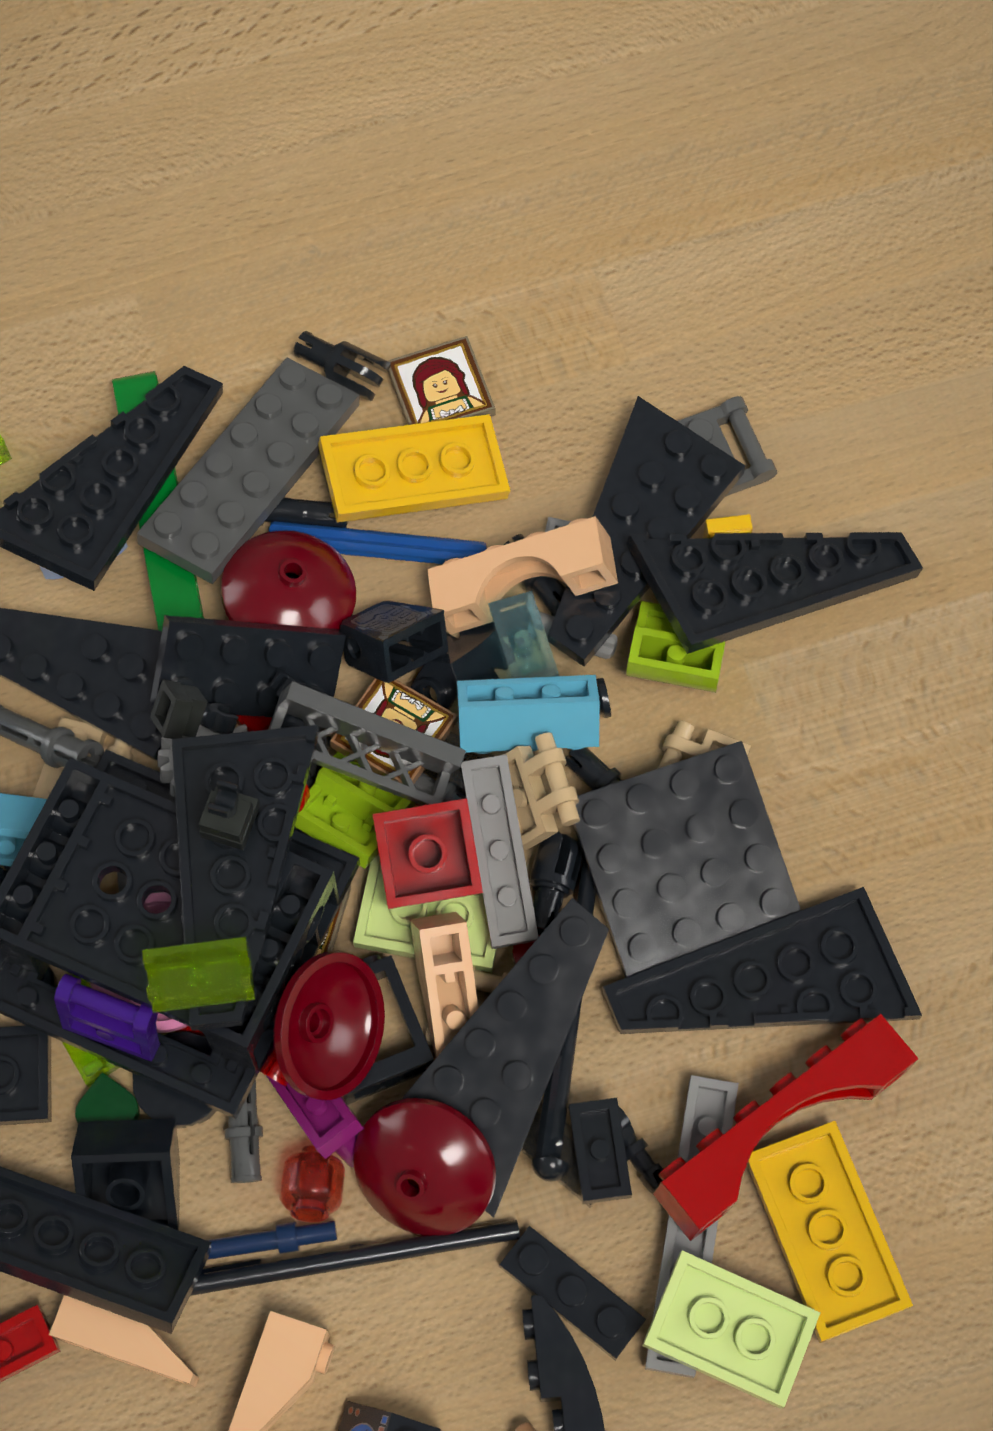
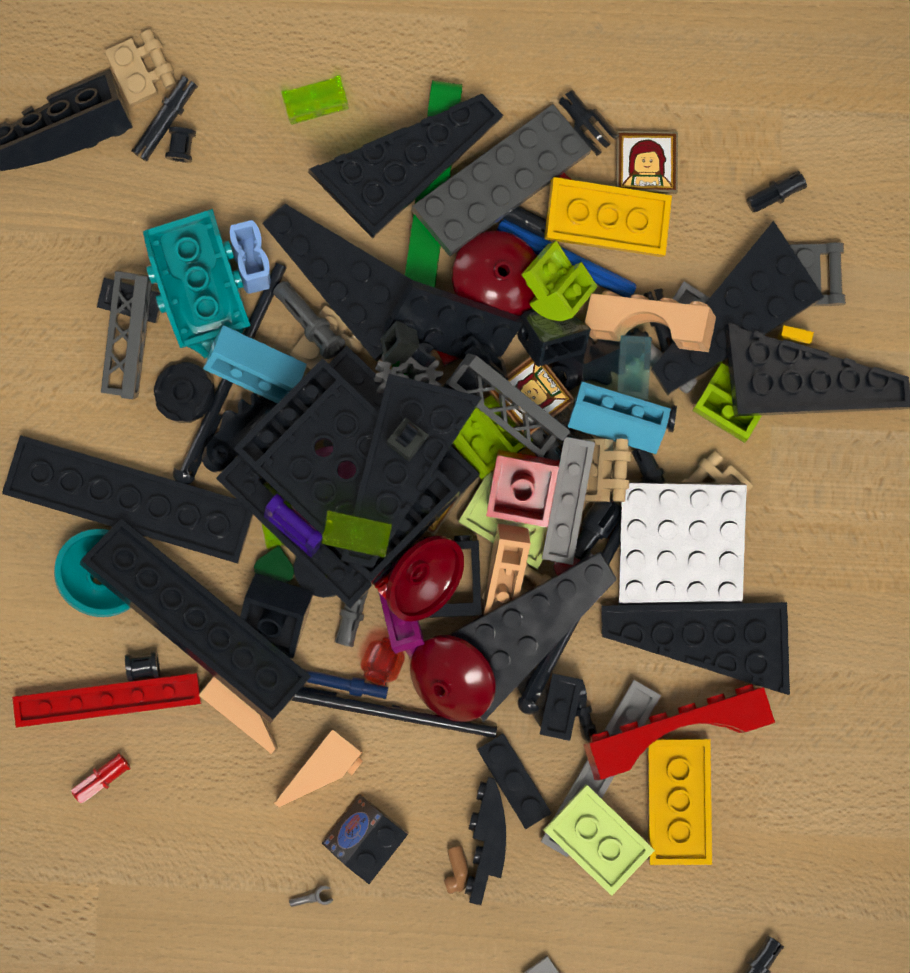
camera: 20 degrees right, 15 degrees up
(377, 574) = (557, 284): none -> lime brick
(628, 364) = (777, 191): none -> black axle

